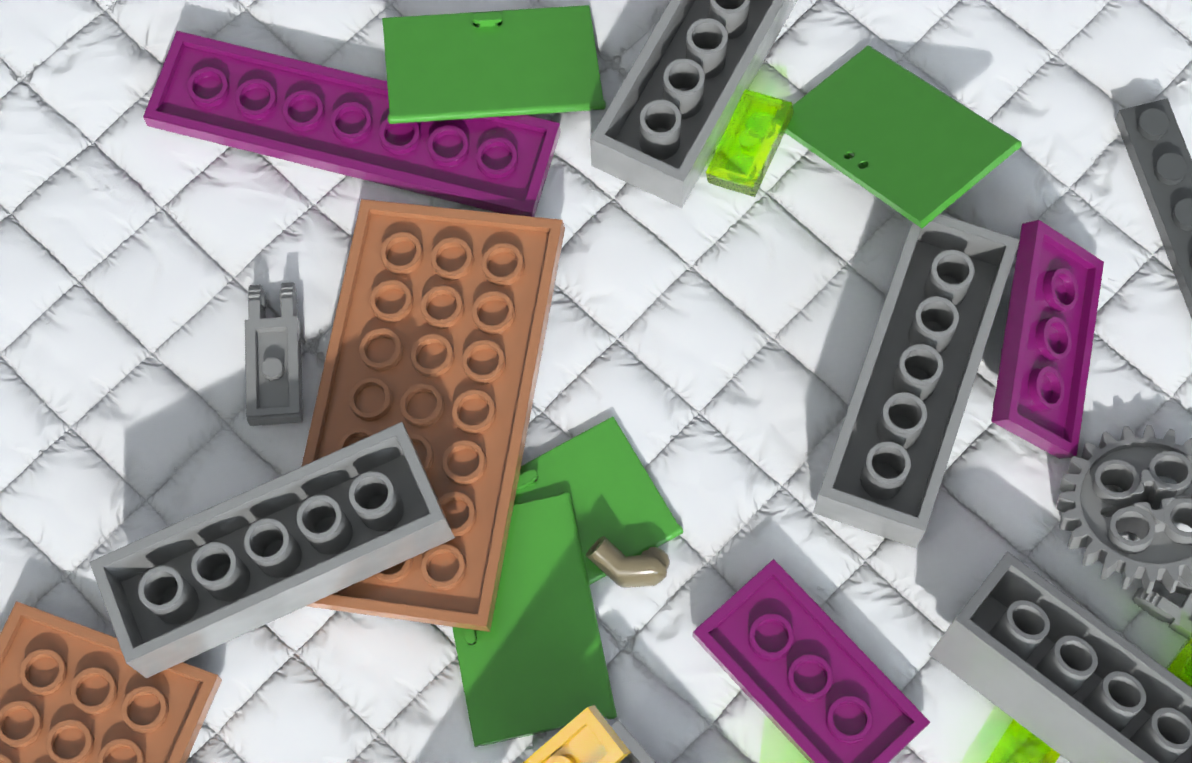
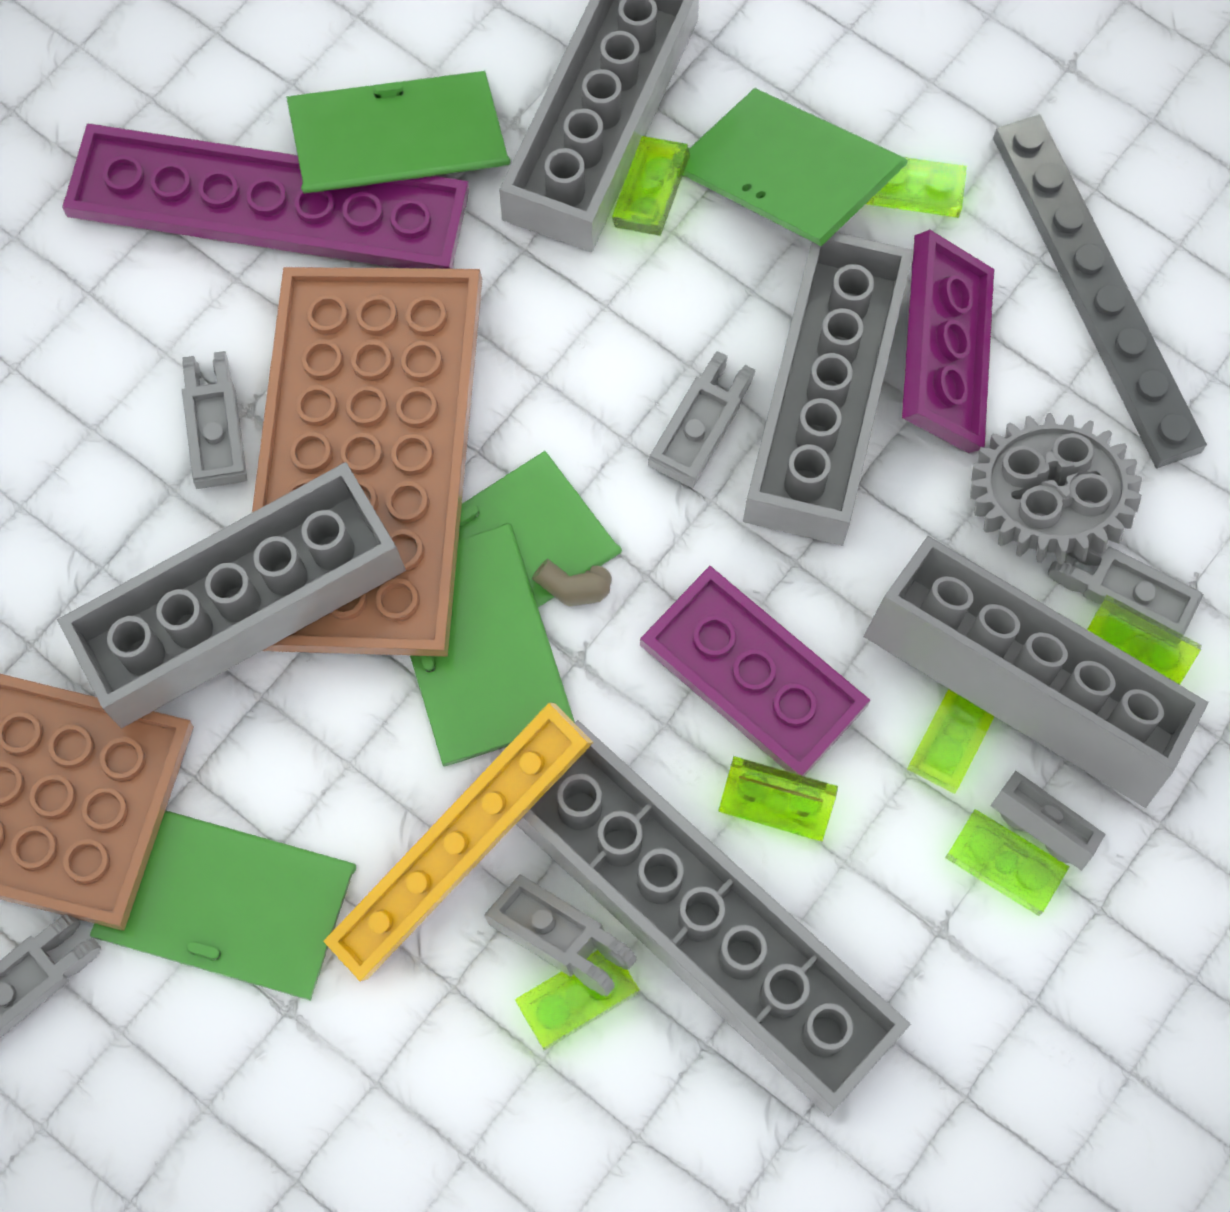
camera: 10 degrees left, 0 degrees up
(777, 402) = (699, 423): none -> light grey hinge
(1040, 168) = (925, 188): none -> clear neon green plate

